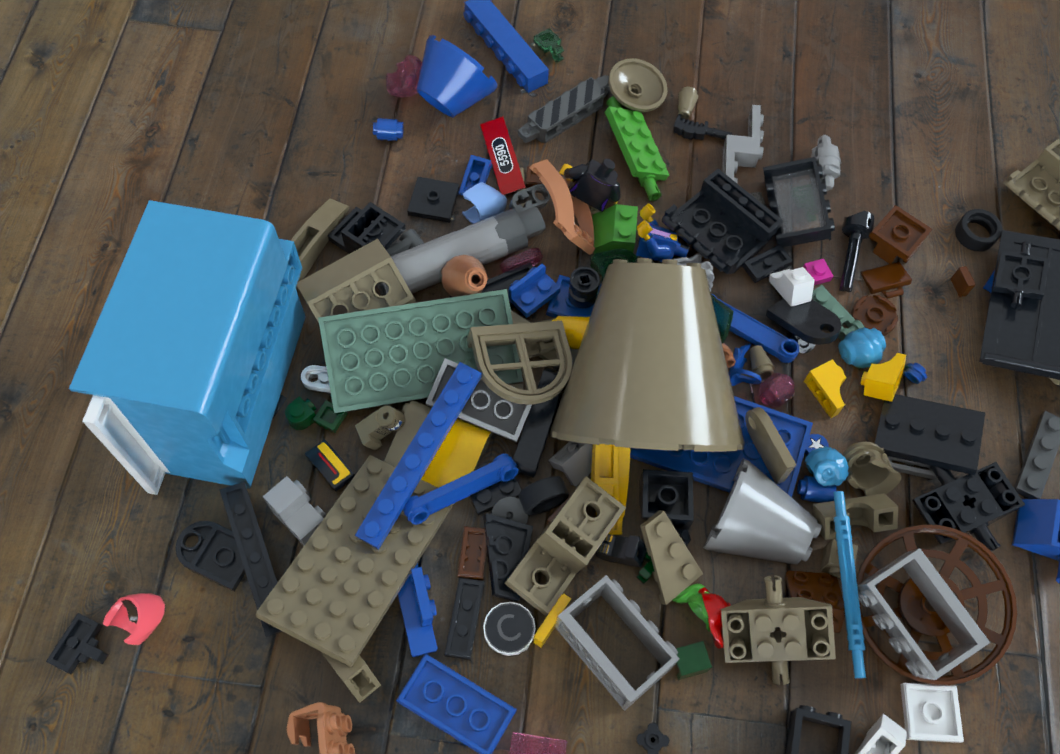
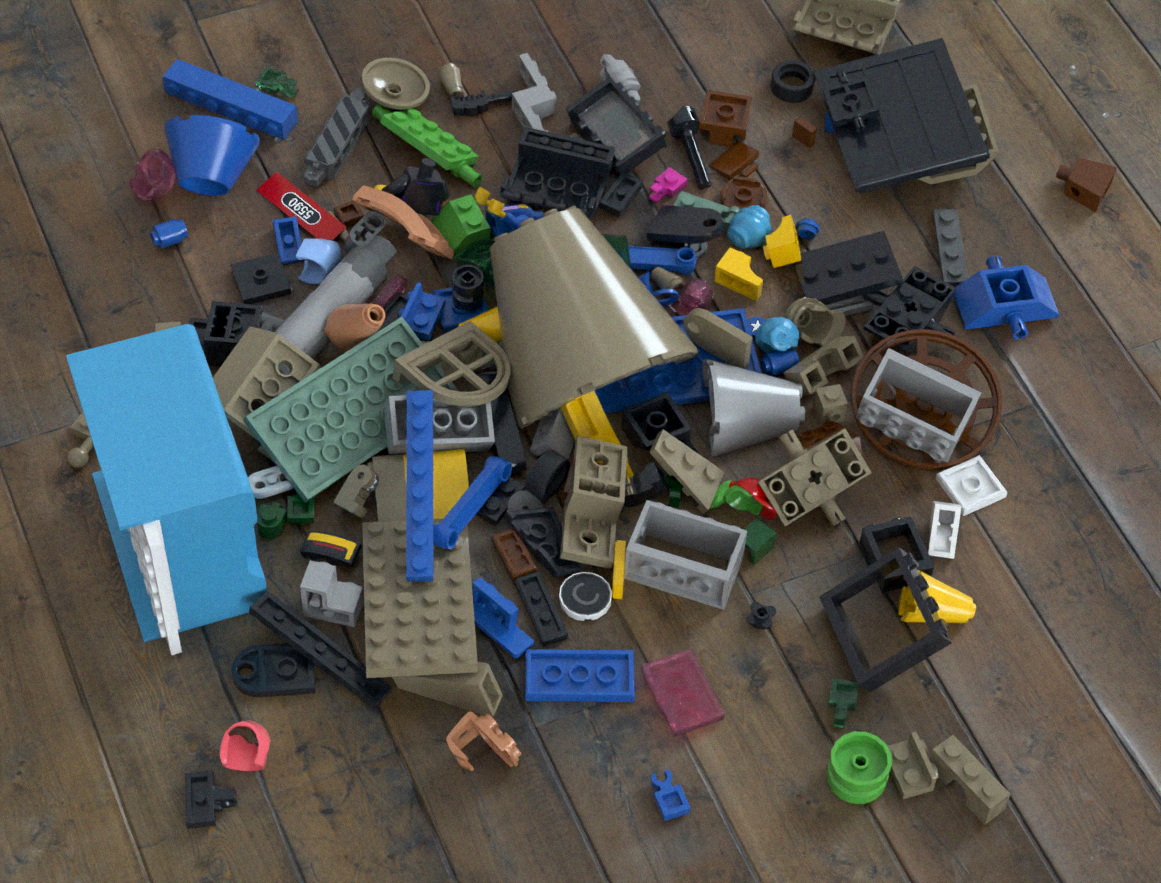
camera: 30 degrees left, 10 degrees down
(793, 285) = (657, 201): white arch -> none
(849, 585) = (849, 413): dark azure axle -> none

